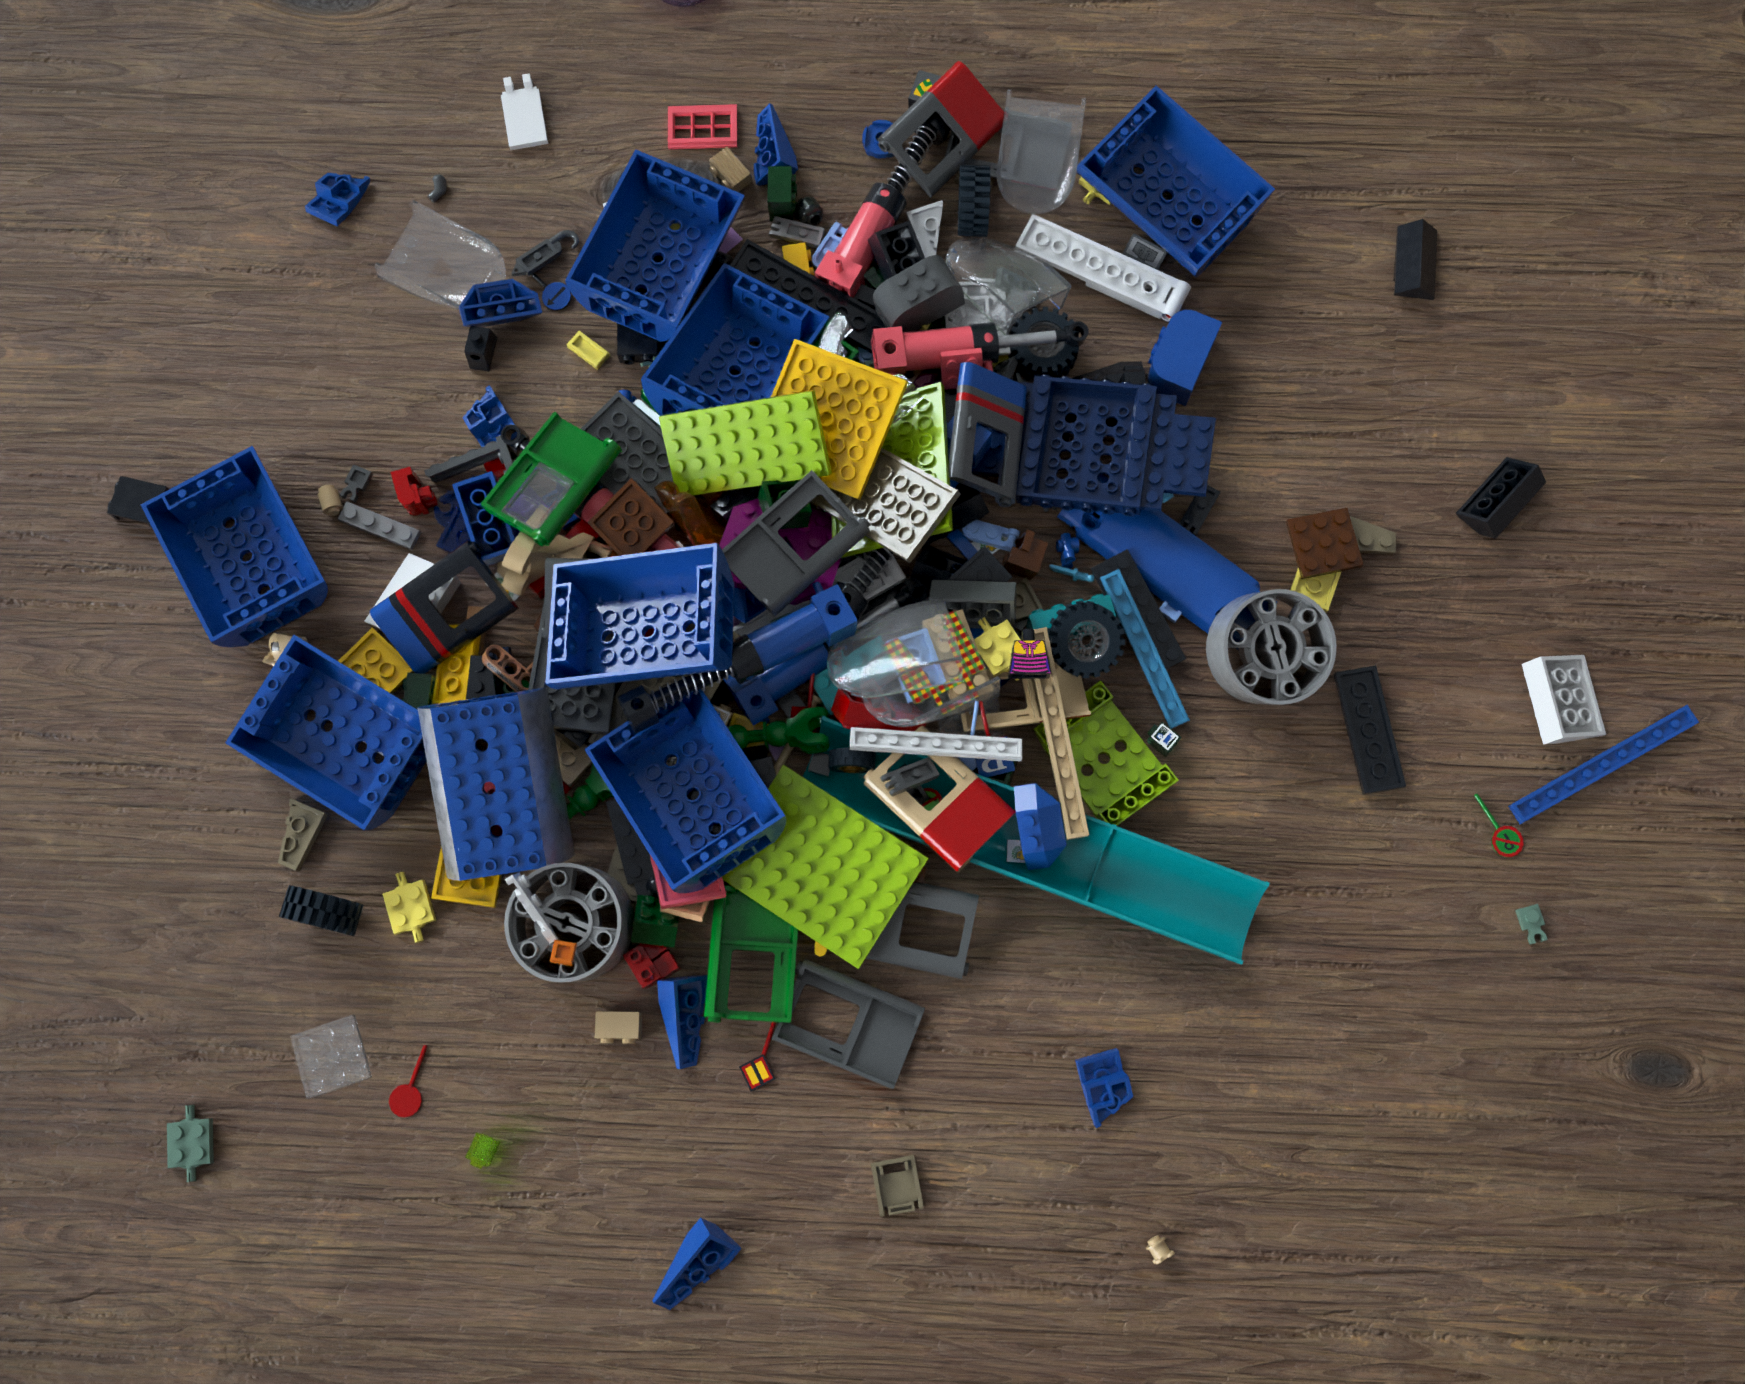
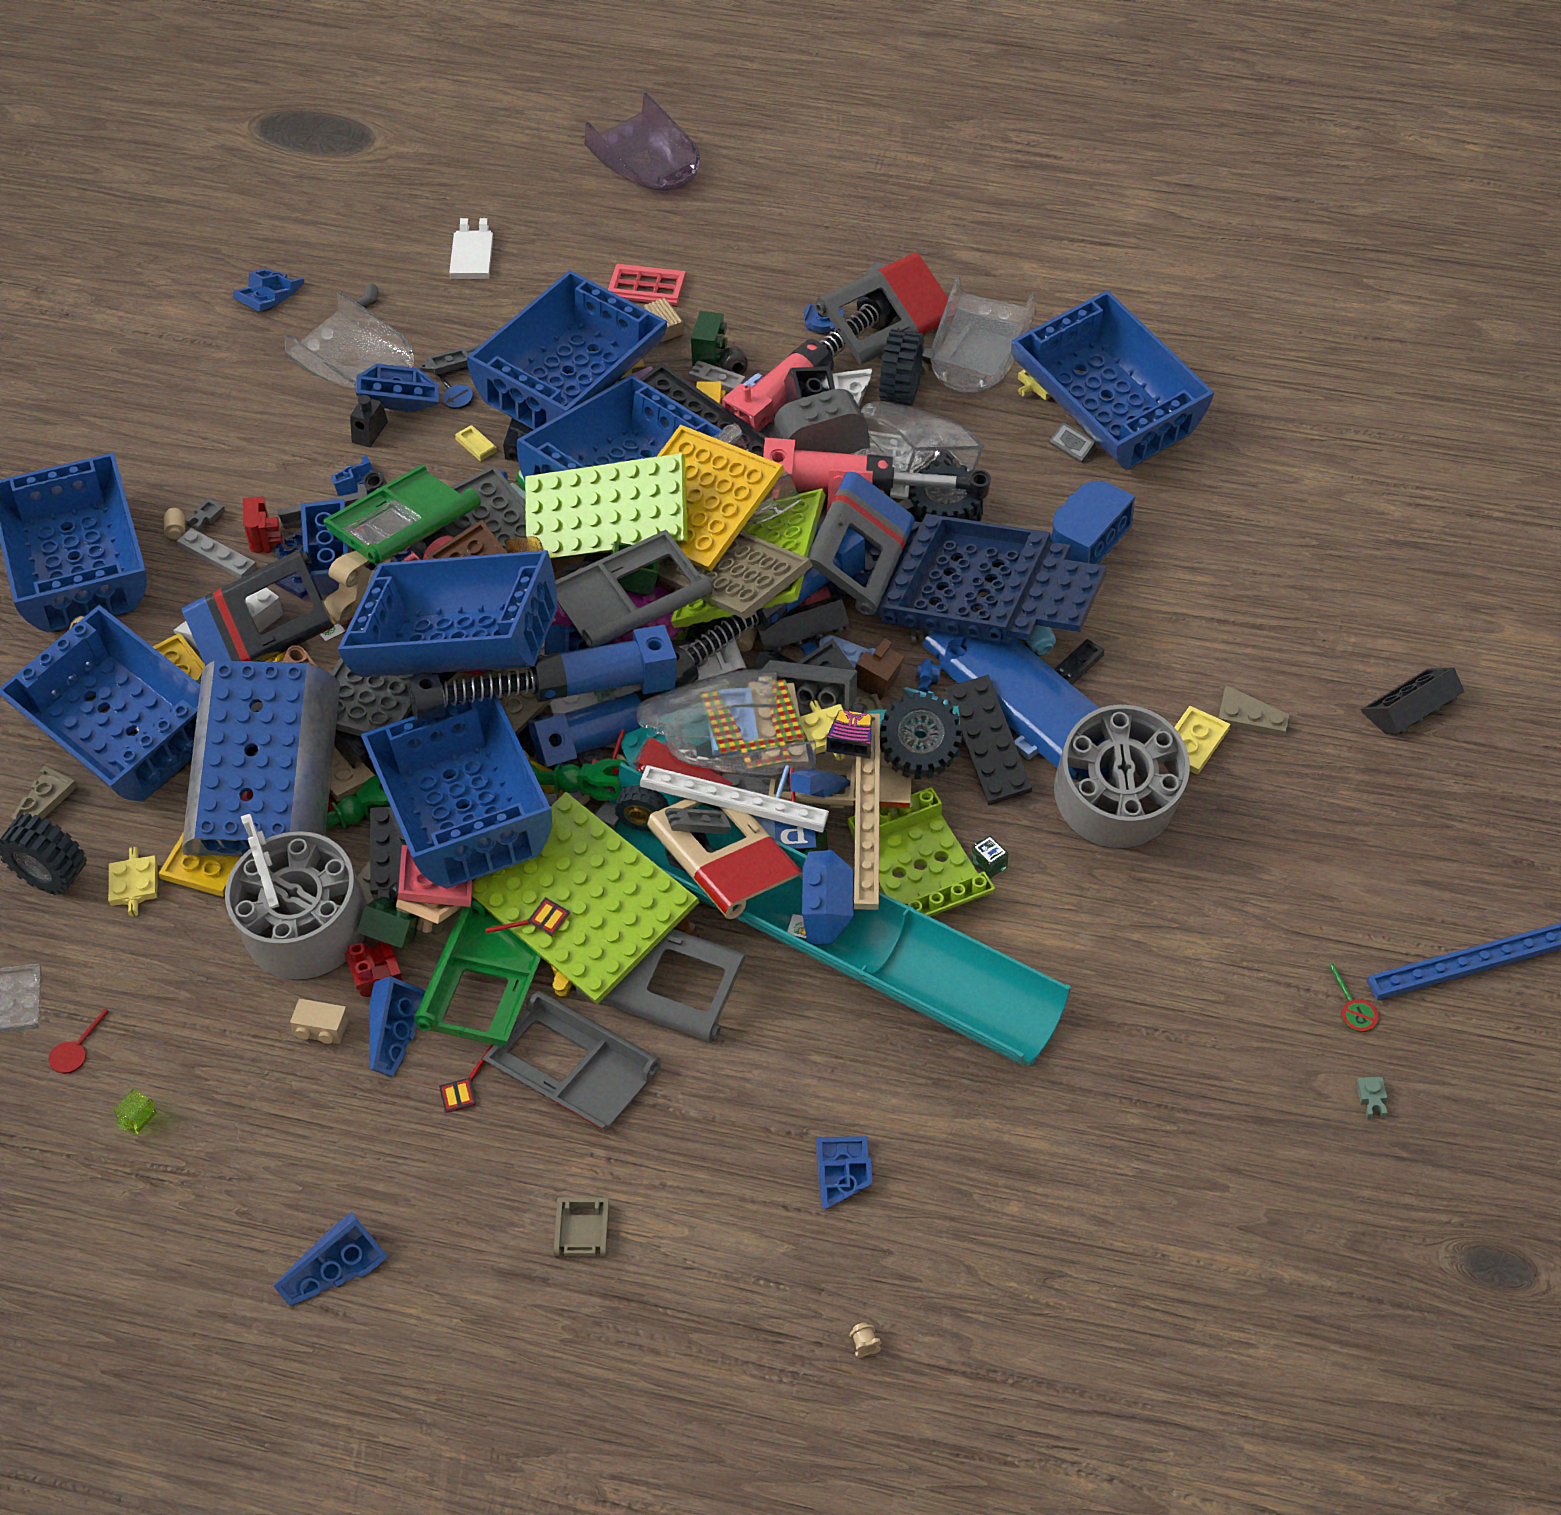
camera: 10 degrees right, 25 degrees down
(563, 952) = (281, 914): orange tile -> none
(773, 145) = (712, 299): blue wedge -> none
(797, 896) = (546, 917): none -> piece
(1005, 708) = (817, 782): none -> blue slope
(1104, 269) = (1025, 446): white hinge -> none
(1144, 649) = (987, 769): dark azure tile -> none
(1324, 543) = (1207, 708): reddish brown plate -> none
(1369, 730) = (1222, 885): black plate -> none
(1415, 260) = (1361, 486): black slope -> none
(1563, 698) = (1448, 889): white slope -> none

